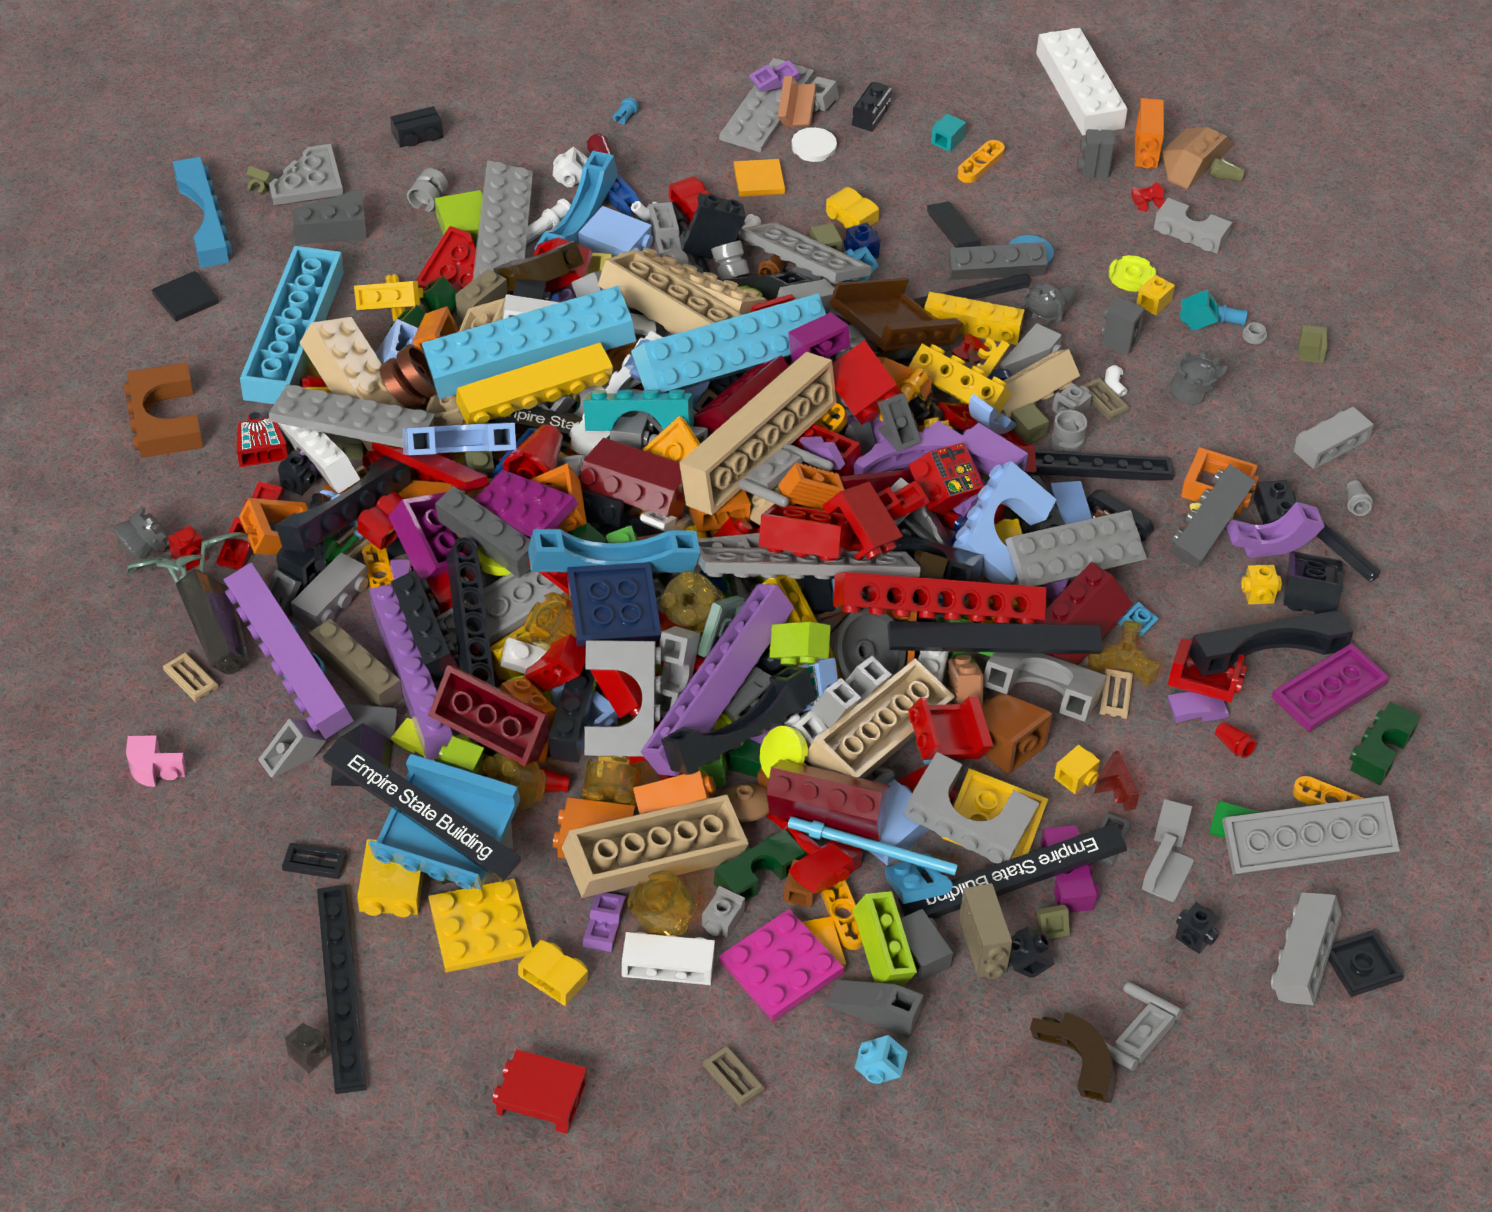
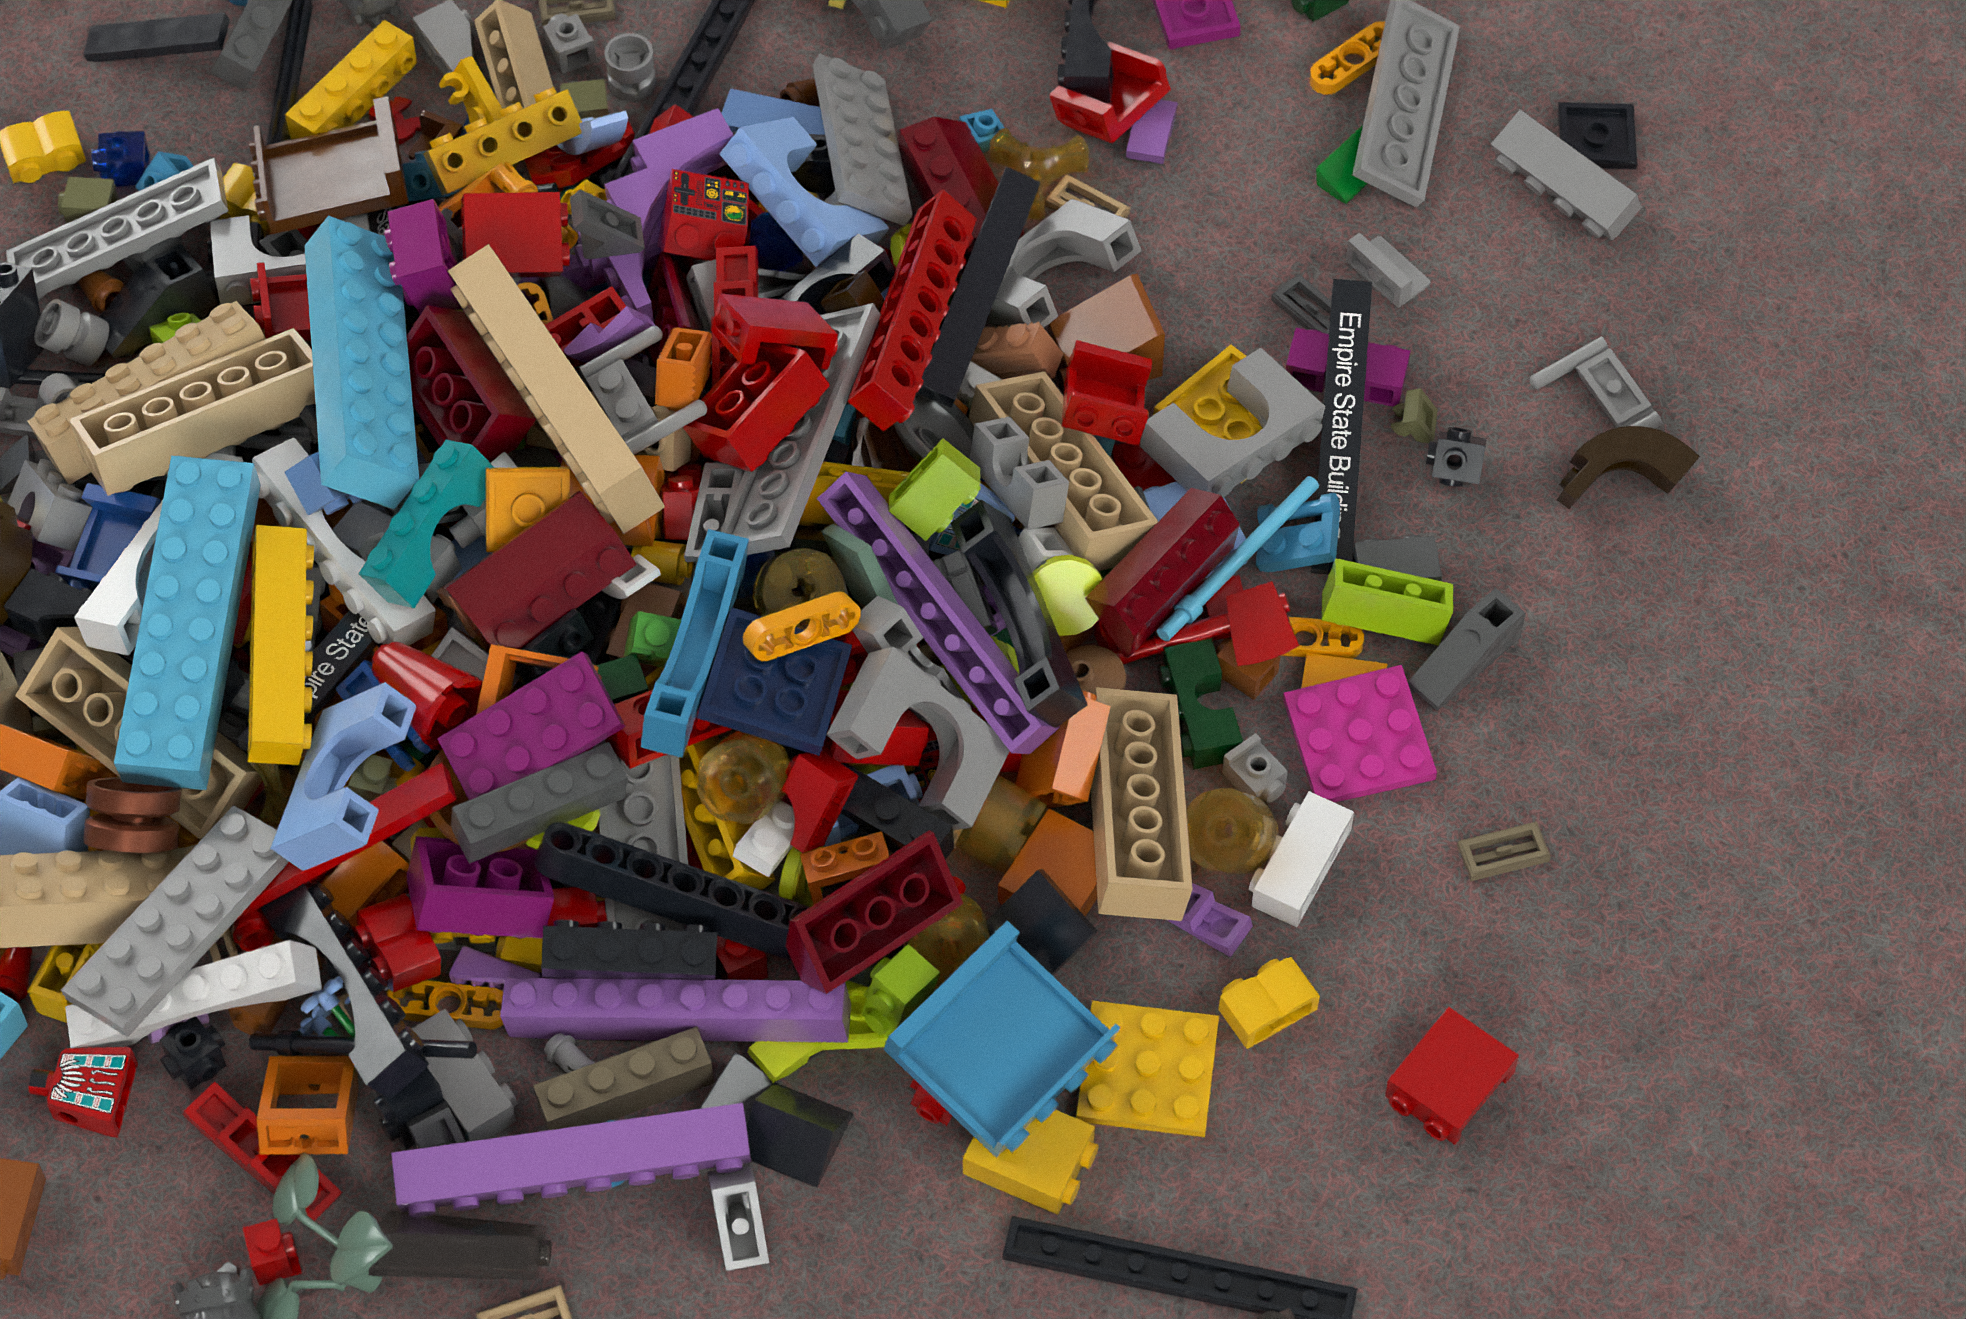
camera: 65 degrees left, 10 degrees up
(310, 865) = (929, 1276): black tile -> none
(368, 633) = (562, 1050): none -> light grey pin
(422, 809) = (967, 1062): black tile -> none
(546, 828) = (1047, 922): none -> black tile
(638, 595) = (774, 634): none -> light orange beam
(881, 1059) = (1554, 676): medium azure brick -> none
(985, 931) = (1420, 470): dark tan window -> none
(1077, 769) = (1198, 294): yellow brick -> none
(1104, 501) = (775, 79): black beam -> none
(1117, 778) = (1226, 256): clear red slope -> none
(1173, 821) = (1324, 231): light grey brick -> none
(1197, 927) = (1492, 270): black brick -> none
(1236, 740) = (1223, 112): red cone -> none

